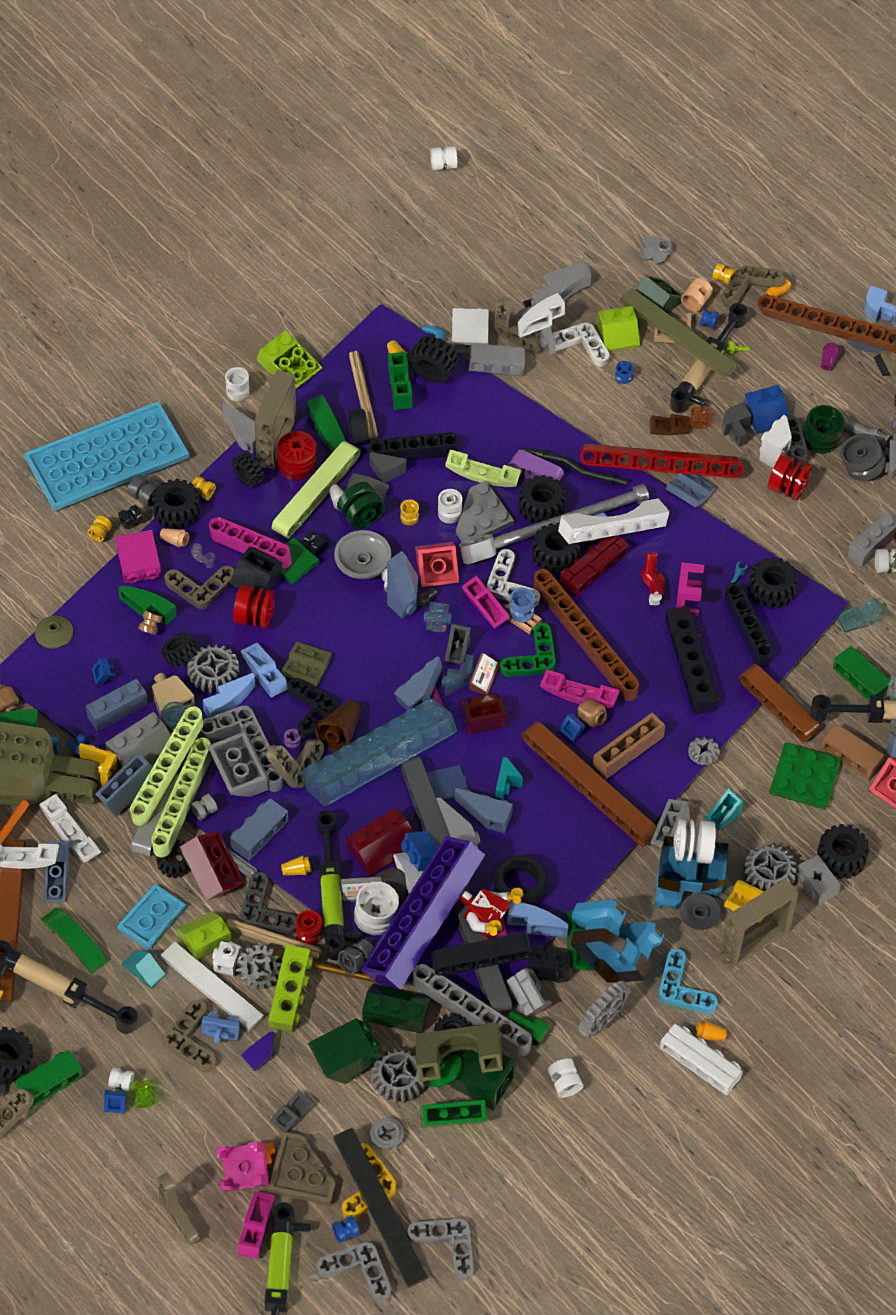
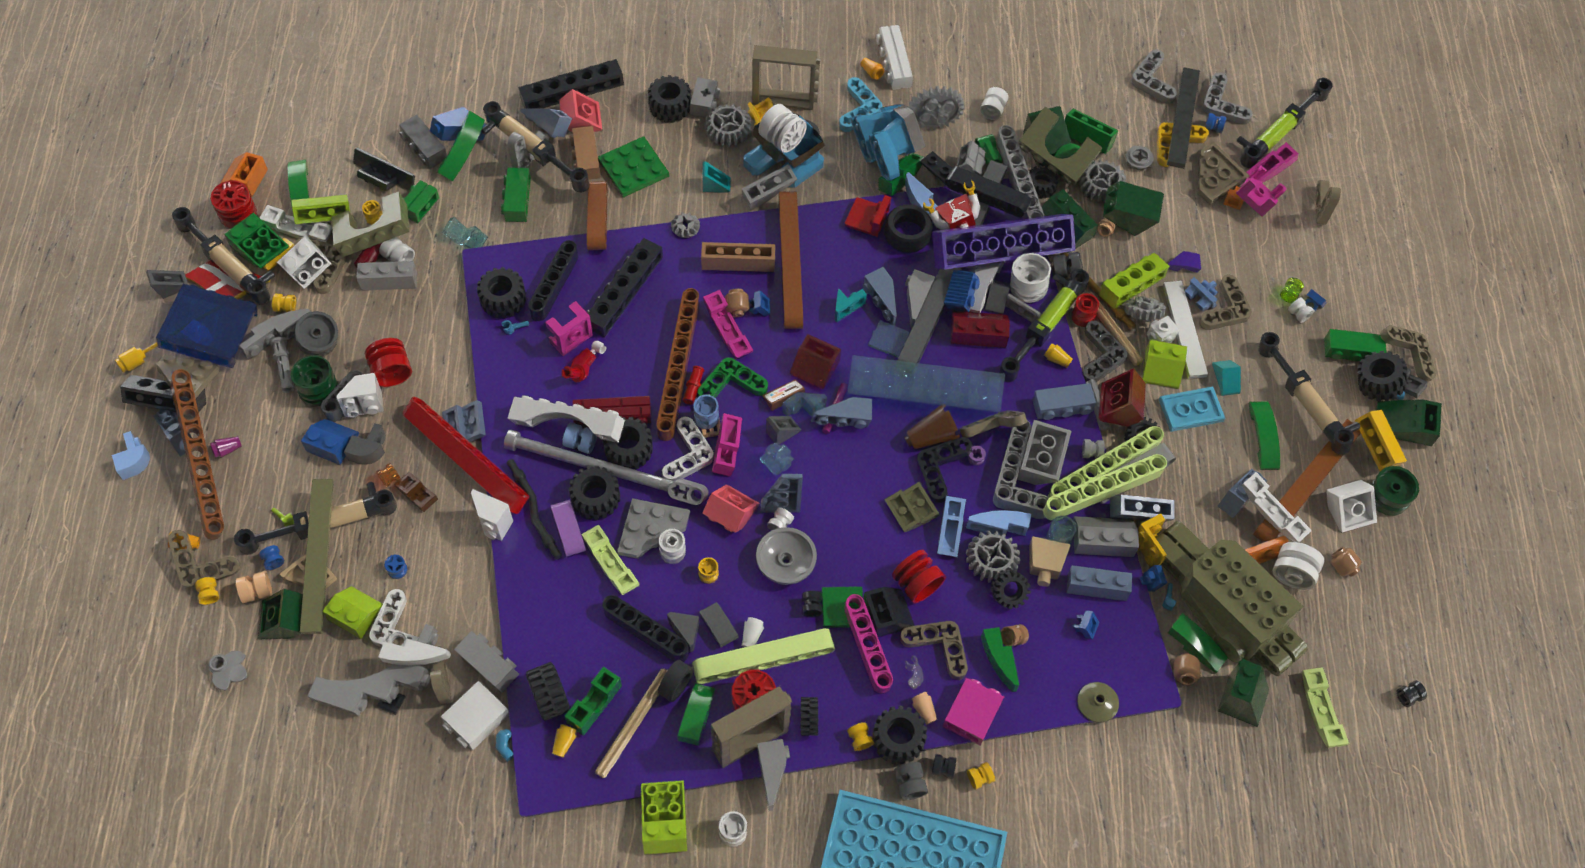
camera: 140 degrees left, 5 degrees up
(68, 829) = (1209, 511): white slope -> none
(293, 1112) = (1191, 214): dark grey slope -> none
(361, 505) = (747, 598): dark green wheel -> none
(424, 598) = (762, 490): pearl dark grey arm -> none
(557, 629) = (693, 385): none -> red pin
(565, 871) = (868, 216): none -> red bracket
(595, 428) = (493, 515): none -> white slope

